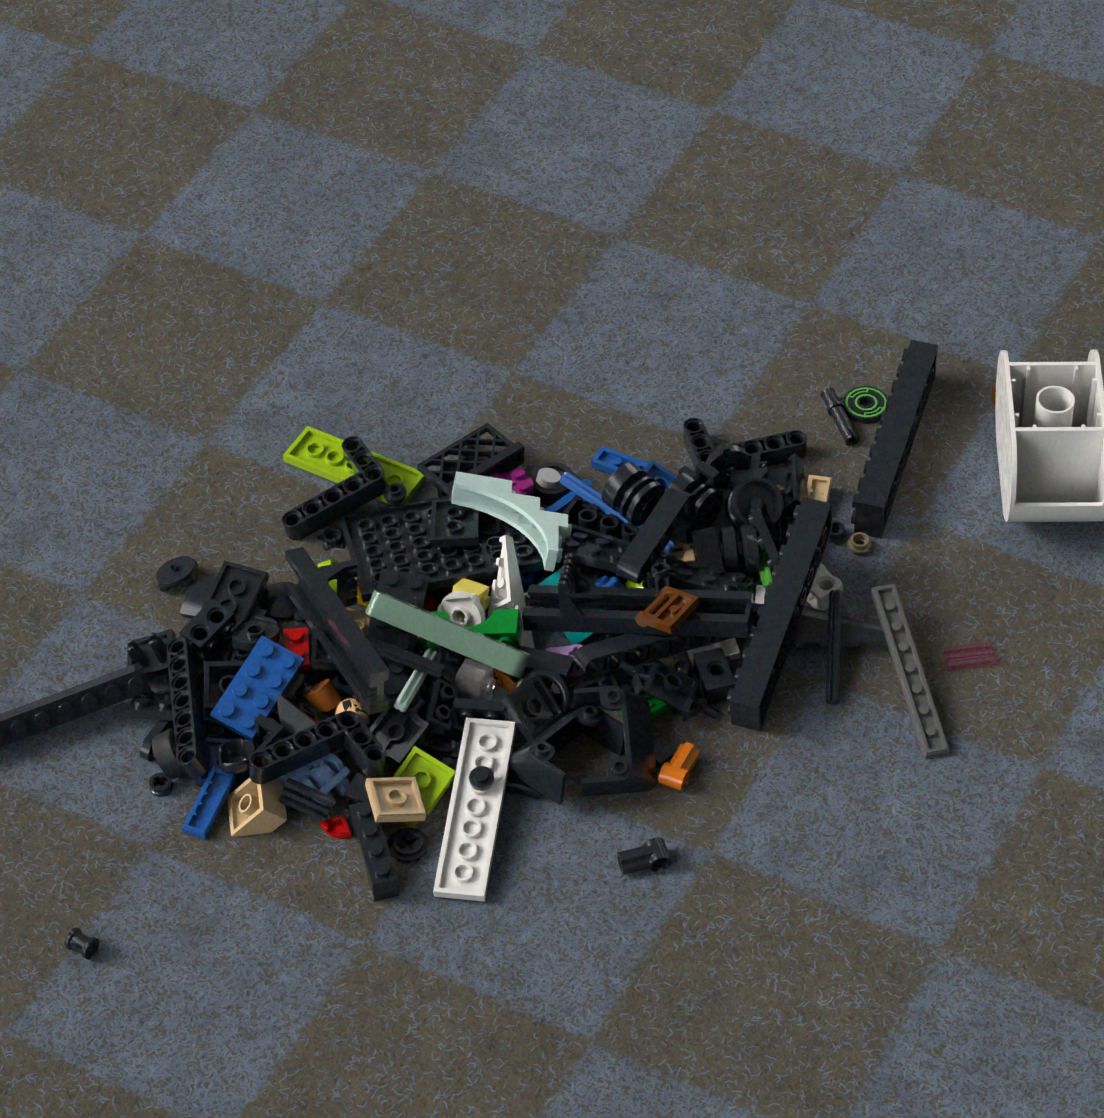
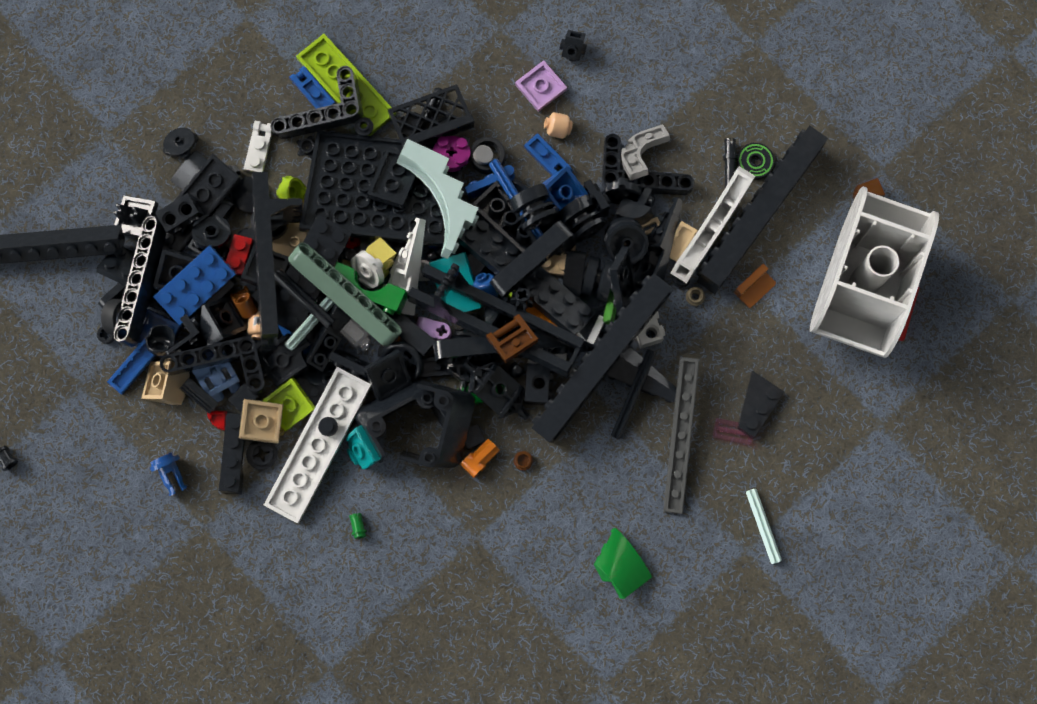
camera: 15 degrees right, 30 degrees up
(274, 553) = (258, 148): none -> white plate
(295, 887) = (164, 465): none -> blue piece
(310, 479) = (311, 89): none -> blue plate
(531, 793) = (361, 449): none -> teal tile
(563, 883) = (357, 526): none -> green pin
(584, 405) = (540, 86): none -> lavender plate
(609, 348) = (573, 45): none -> black brick
(622, 432) = (558, 125): none -> light nougat head
(651, 855) = (427, 529): black piece -> none
(724, 425) = (637, 146): none -> light grey plate
(732, 756) = (523, 460): none -> reddish brown plate
(850, 455) = (713, 225): none -> white arch
(898, 813) = (621, 565): none -> green slope
(923, 514) = (755, 286): none -> dark orange panel
(984, 620) = (758, 404): none -> black wing
(1052, 734) = (763, 526): none -> light aqua axle

